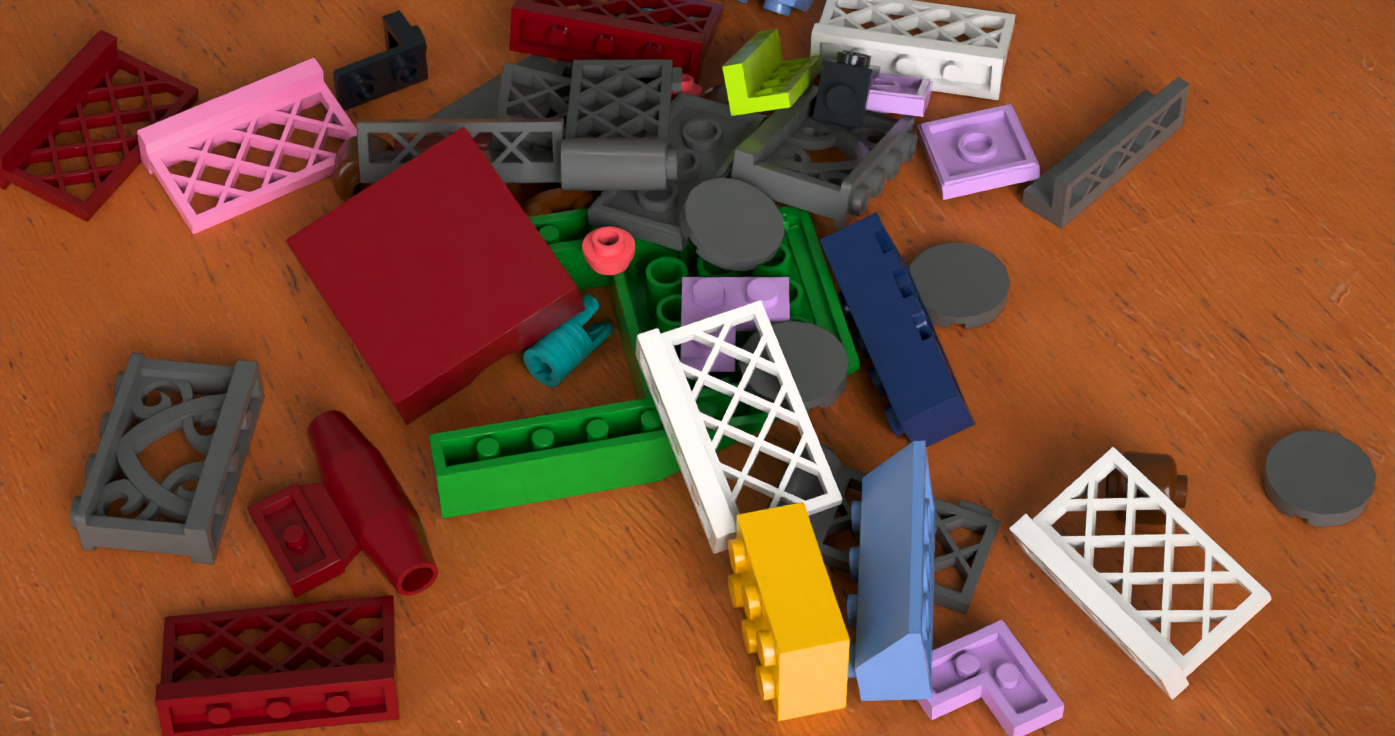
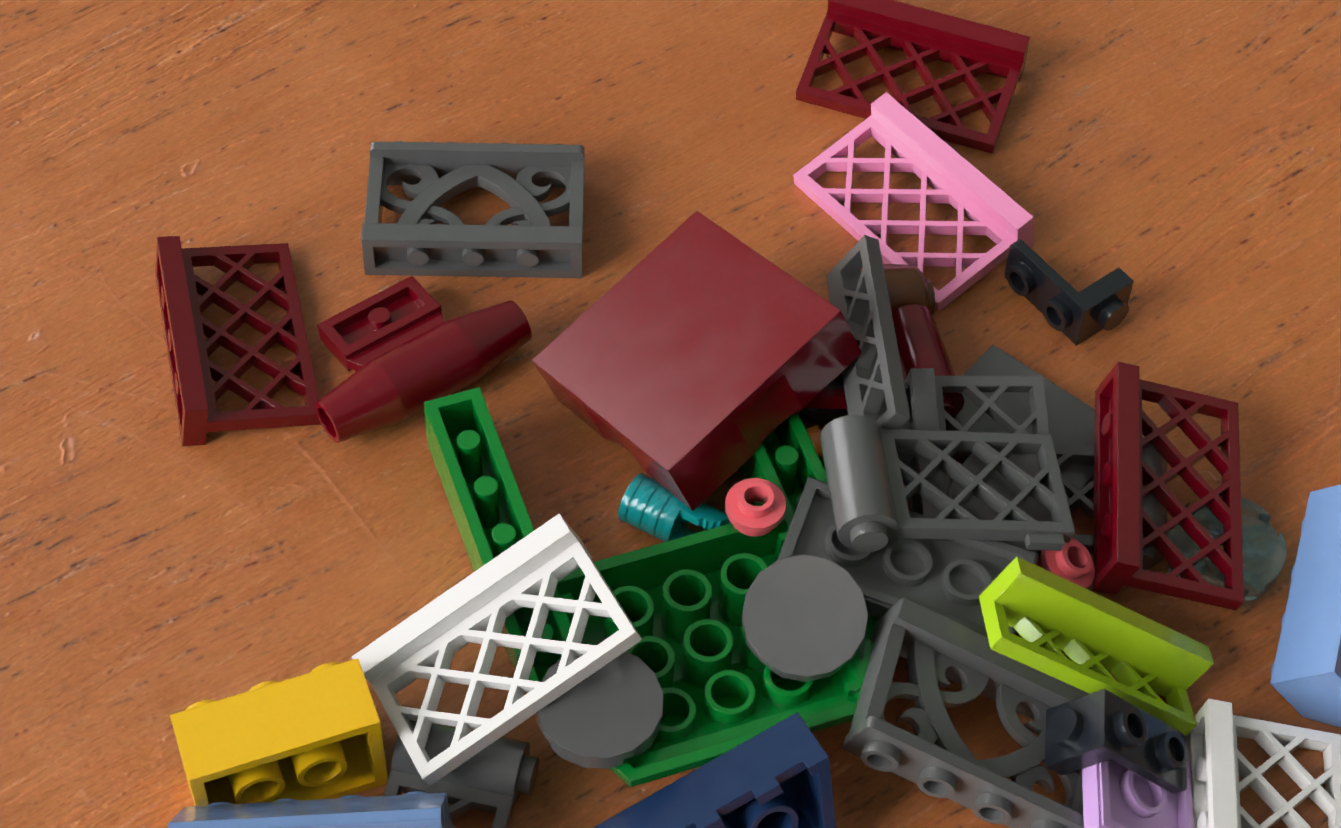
camera: 80 degrees right, 5 degrees up
(715, 295) = (687, 627): lavender plate -> none

